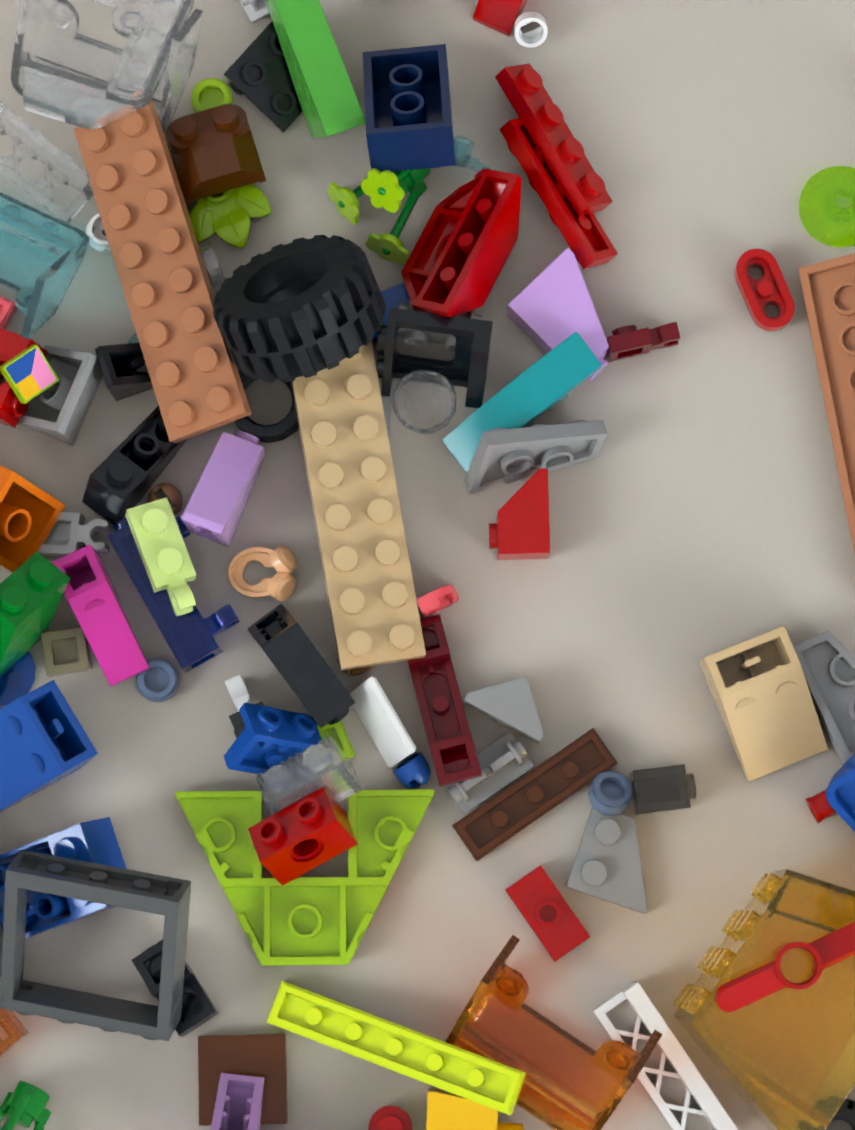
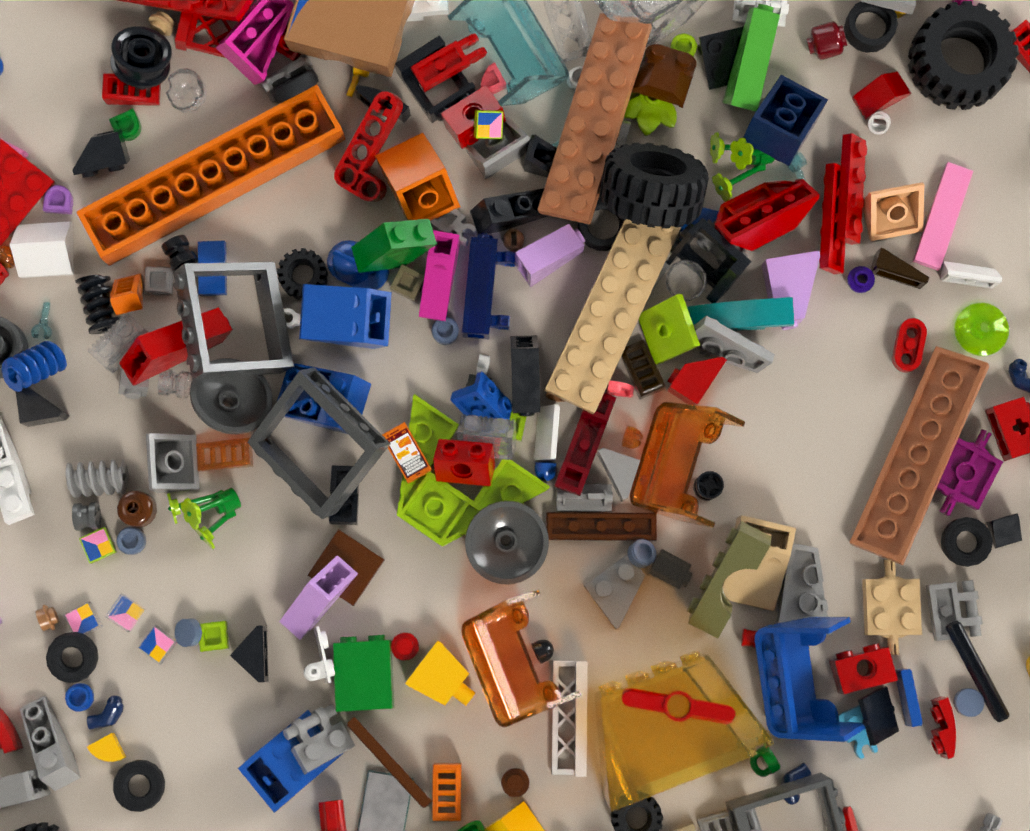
camera: 30 degrees right, 0 degrees up
(163, 552) = (494, 265): yellowish green plate -> none
(219, 876) = (407, 453): none -> tile
(278, 587) = (542, 325): light nougat piece -> none
(397, 1047) = (437, 607): neon yellow tile -> none
(446, 480) = (668, 329): none -> lime plate
(453, 918) = (510, 561): none -> dark grey dish
(478, 570) = (641, 391): none -> dark brown slope
(494, 654) = (632, 438): none -> clear orange hinge
(547, 913) = (564, 592): red plate -> none
(563, 644) = (672, 456): none -> clear orange windscreen
(571, 1006) = (543, 650): none -> black hinge
(628, 131) = (894, 211): none -> light nougat slope
(631, 342) = (818, 324): dark red plate -> none
(640, 642) = (712, 484): none -> black wheel
(645, 259) = (853, 282): none -> dark purple plate
(675, 205) = (895, 269): none -> dark brown slope
(692, 95) = (942, 216): none -> bright pink tile
(740, 702) = (744, 551): none -> olive arch
(778, 147) = (970, 275): none -> white slope

